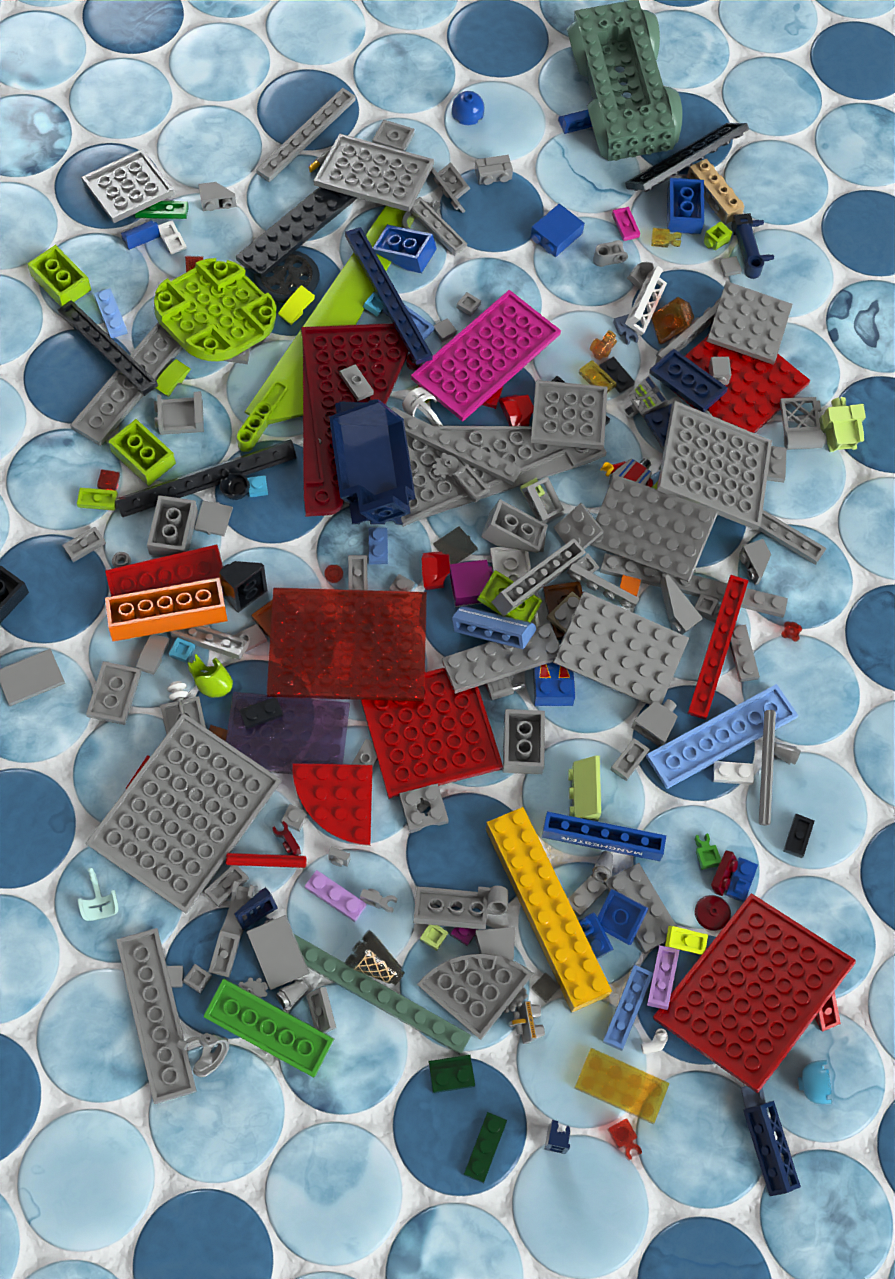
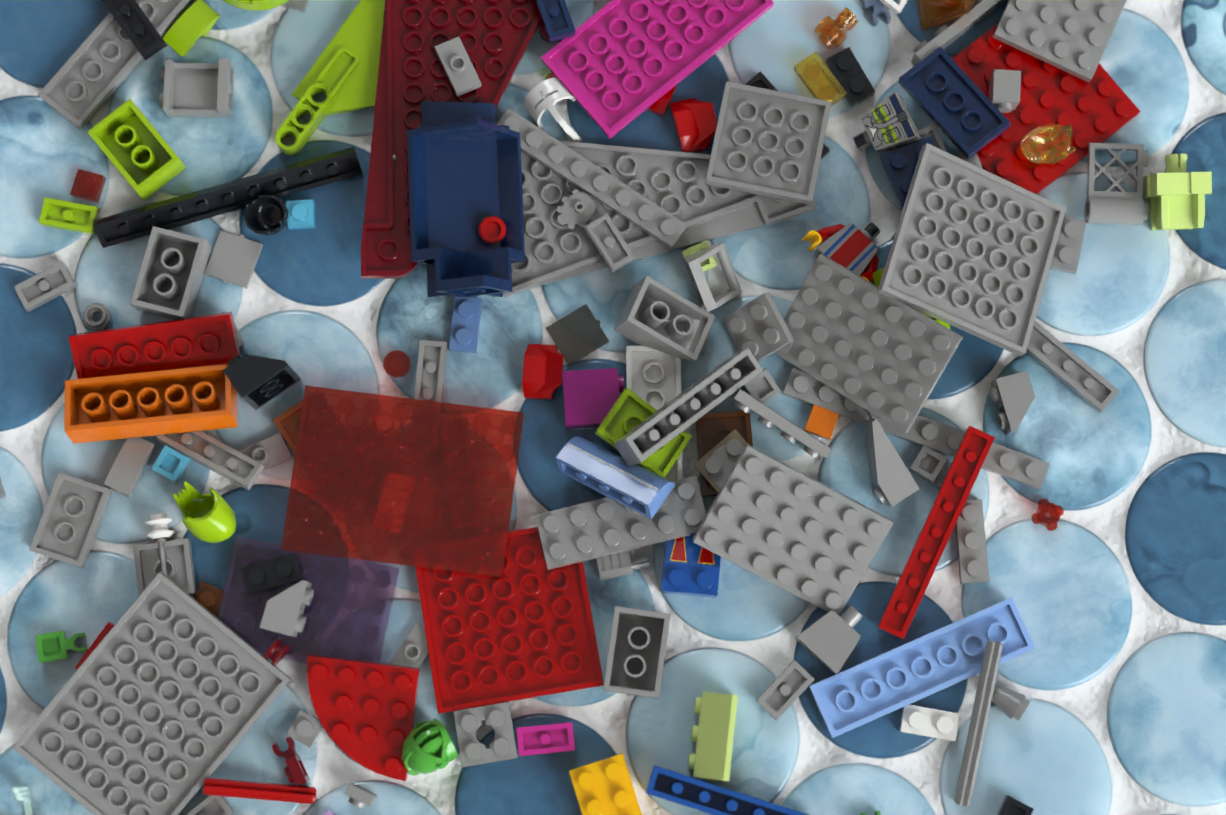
camera: 10 degrees right, 15 degrees up
(109, 777) = (55, 646): none -> bright green plate
(270, 762) = (276, 651): none -> dark red bush
(273, 734) = (286, 610): none -> light grey slope
(385, 818) = (428, 748): none -> bright green helmet
(390, 479) = (491, 230): none -> red tile
(402, 584) = (492, 392): light grey plate -> none
(466, 807) = (545, 739): none -> dark pink plate
(754, 400) = (1047, 143): none -> clear yellow hat

